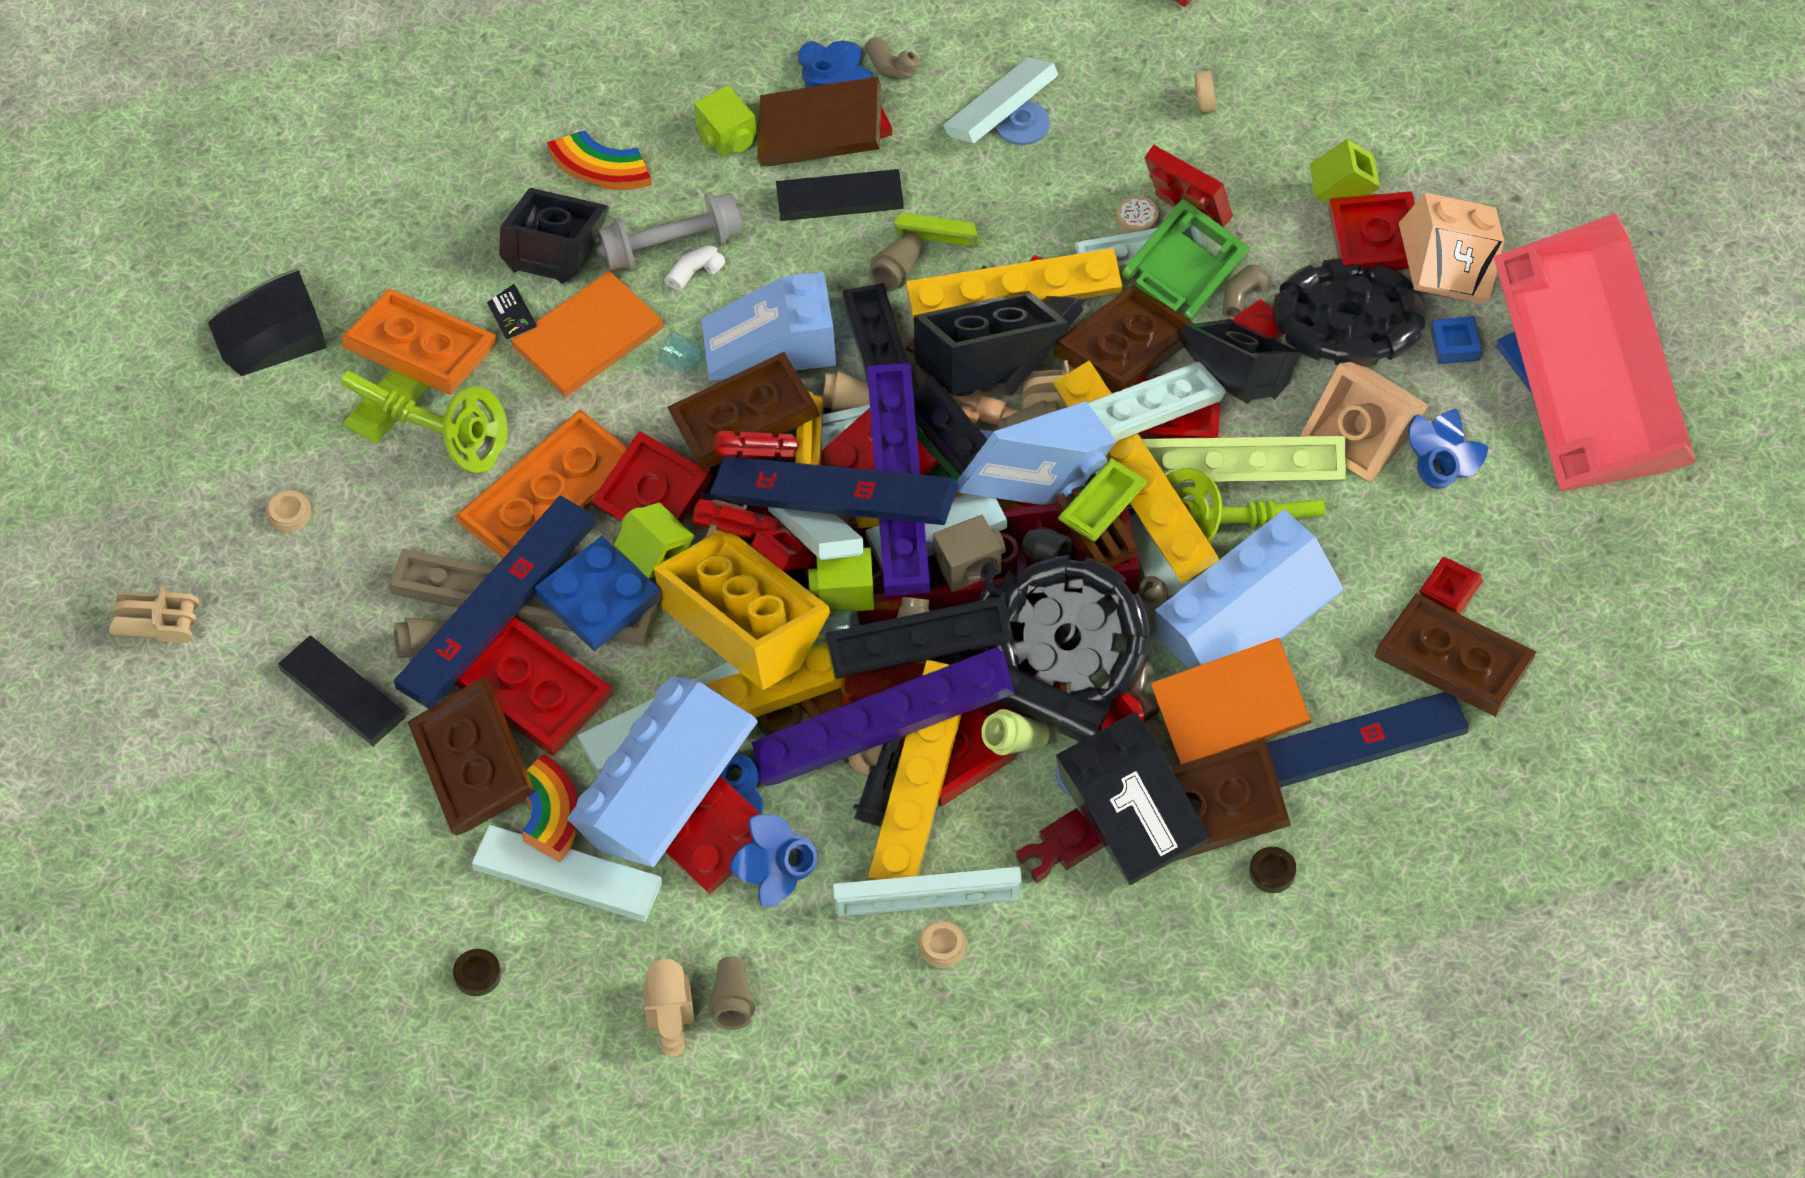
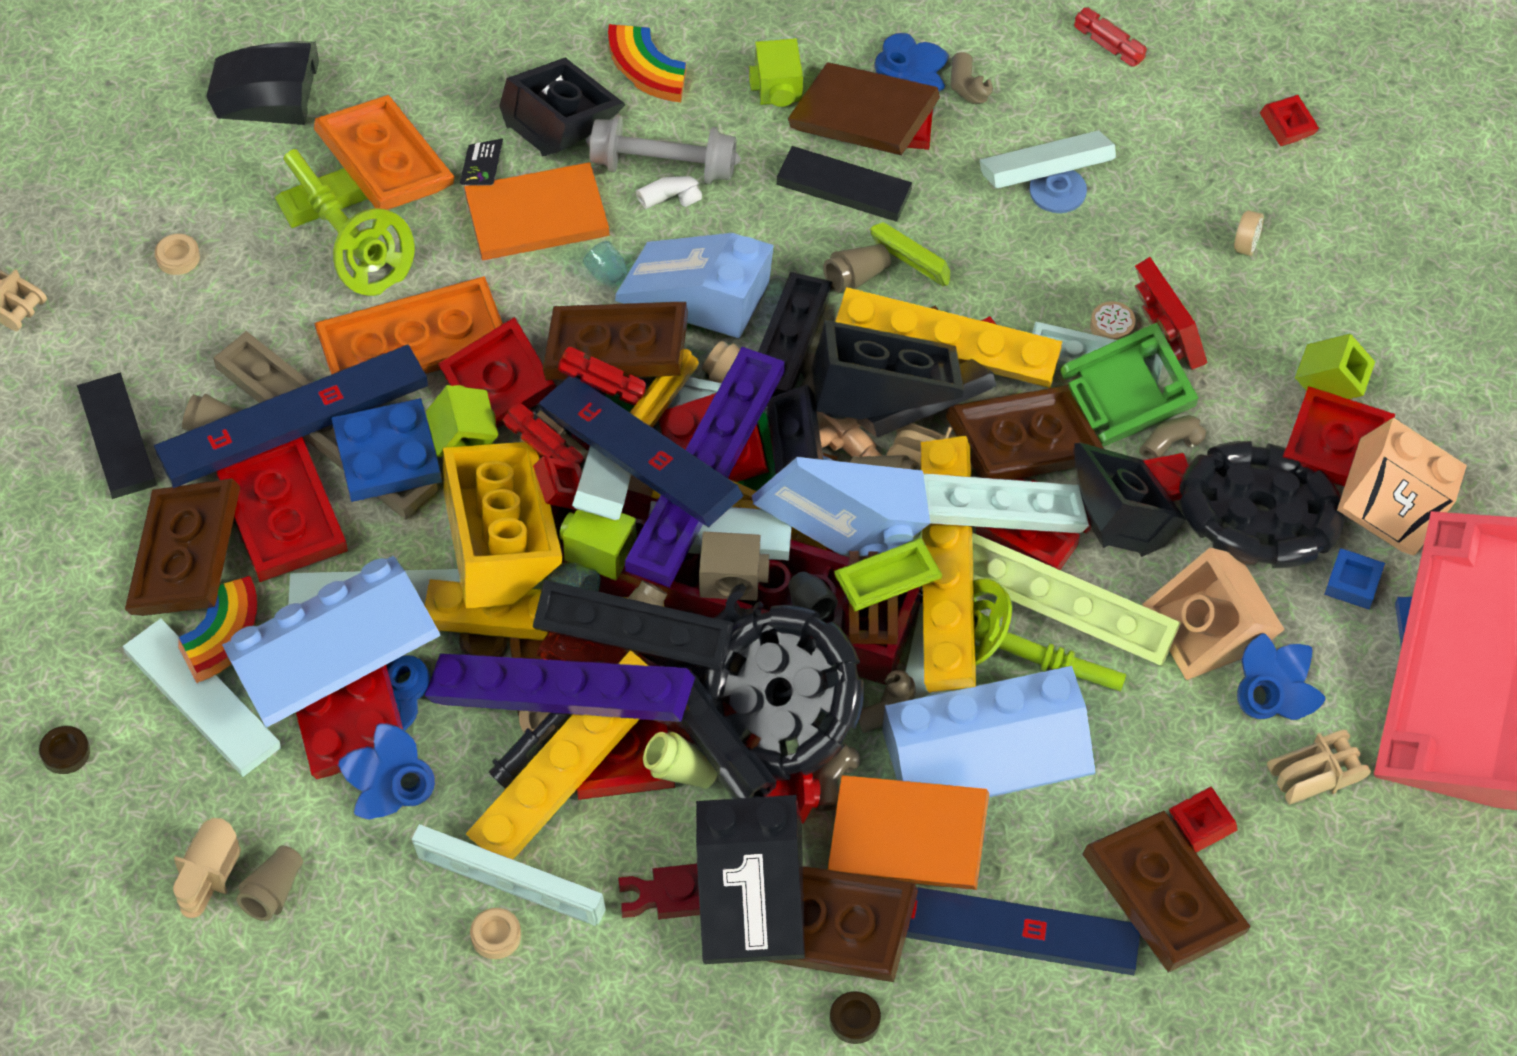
camera: 25 degrees right, 0 degrees up
(1516, 503) = (1316, 769): none -> tan arm

